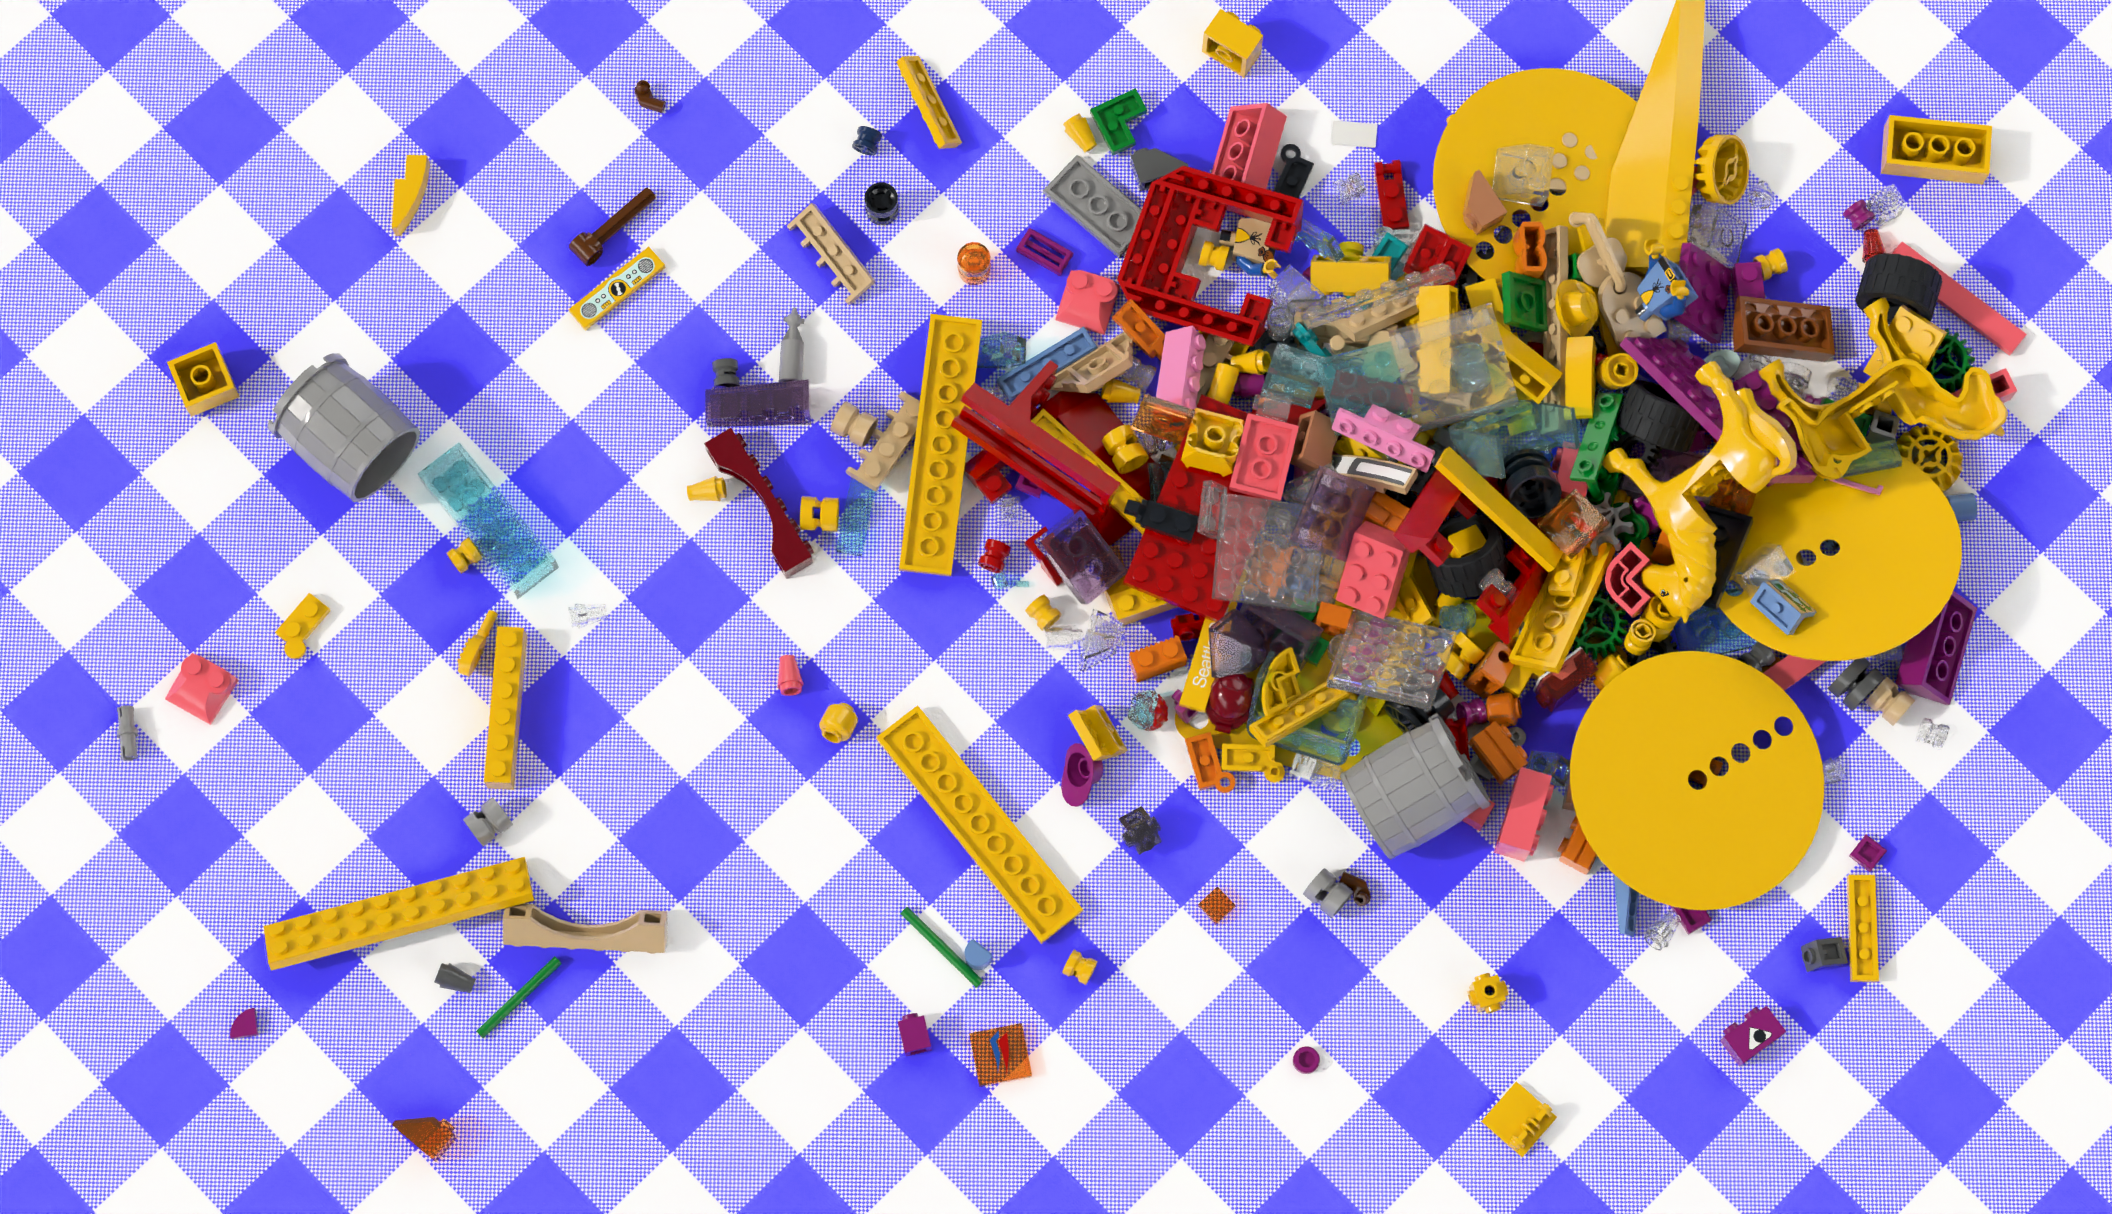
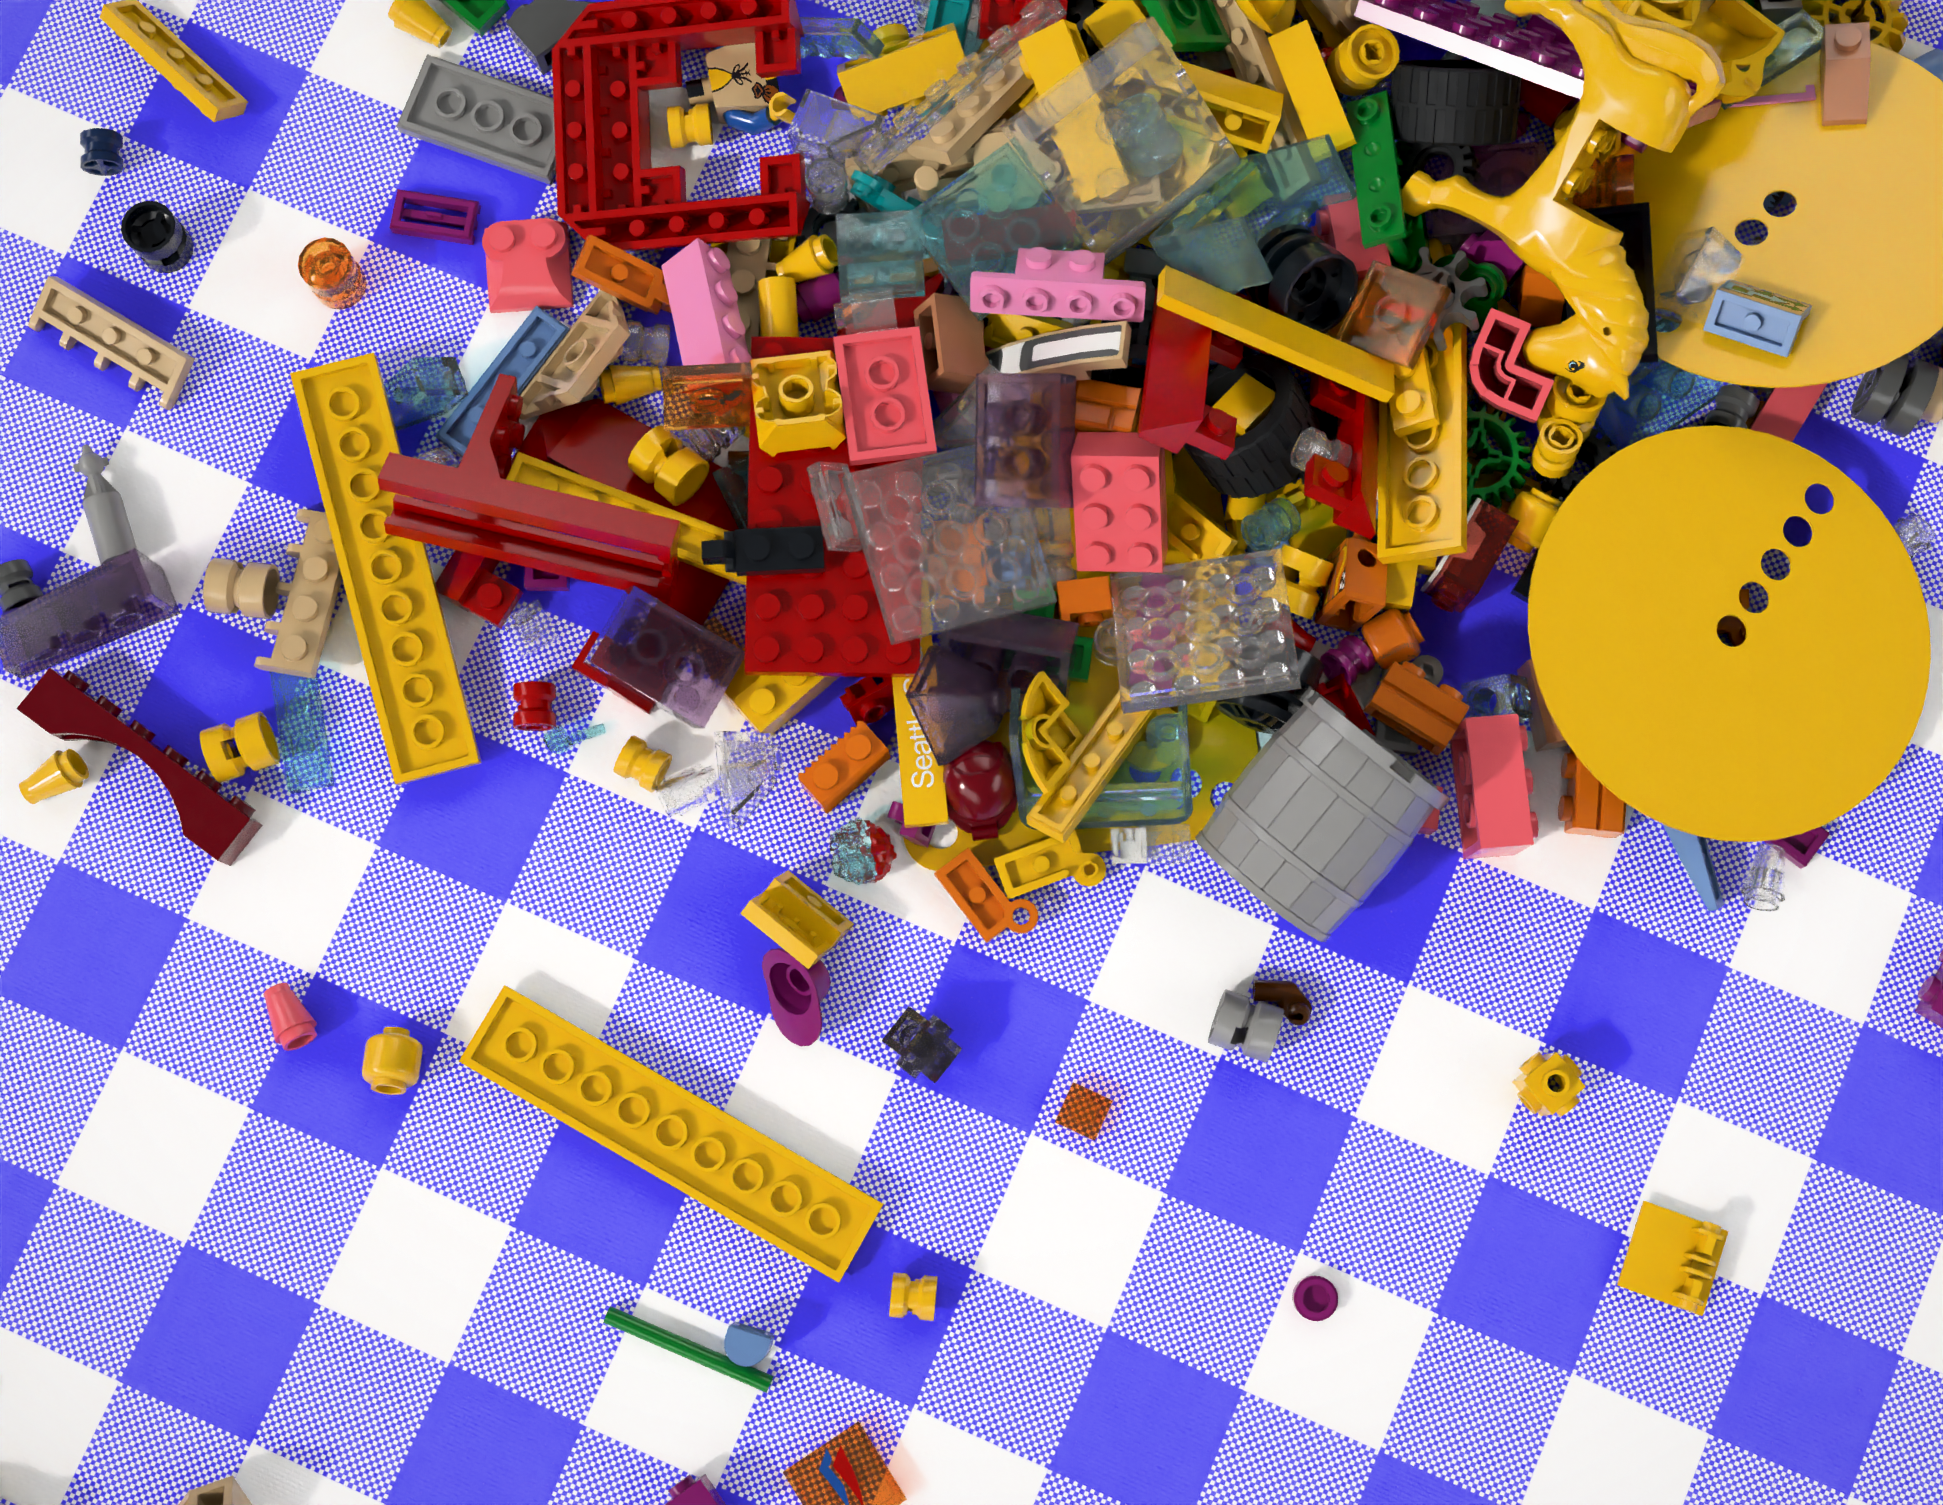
camera: 20 degrees left, 5 degrees up
(1898, 487) = (1845, 73): none -> nougat slope

